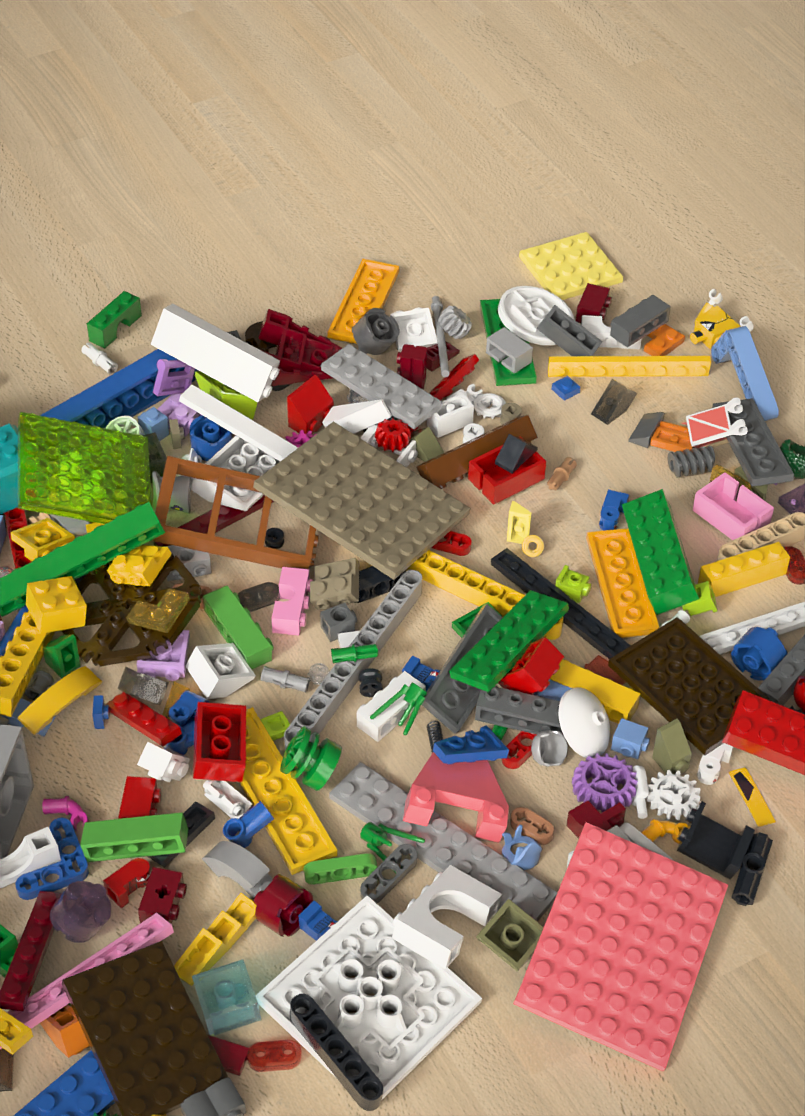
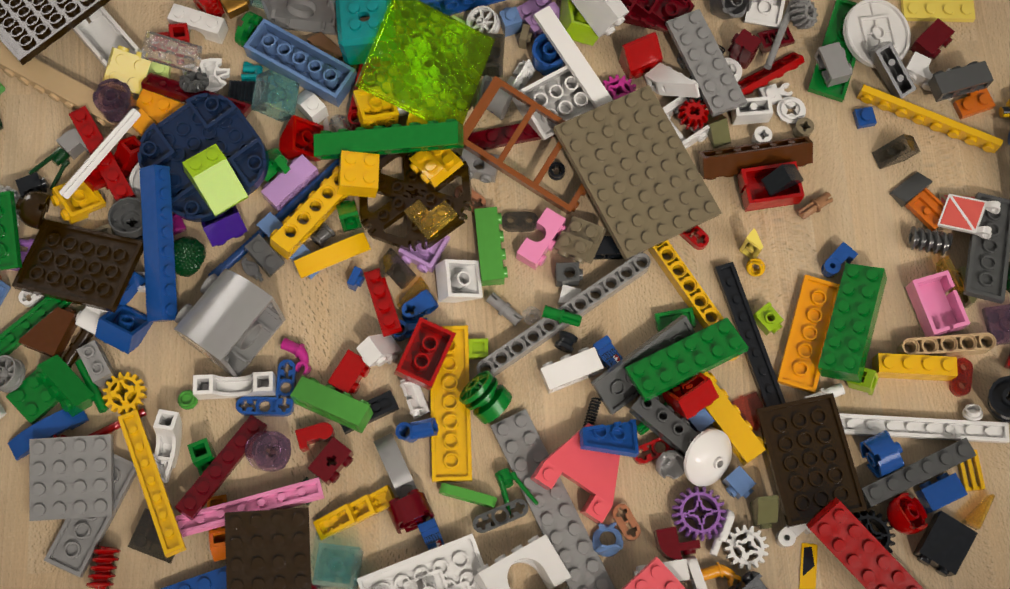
camera: 25 degrees right, 25 degrees up
(413, 696) = (587, 377): green plant -> none

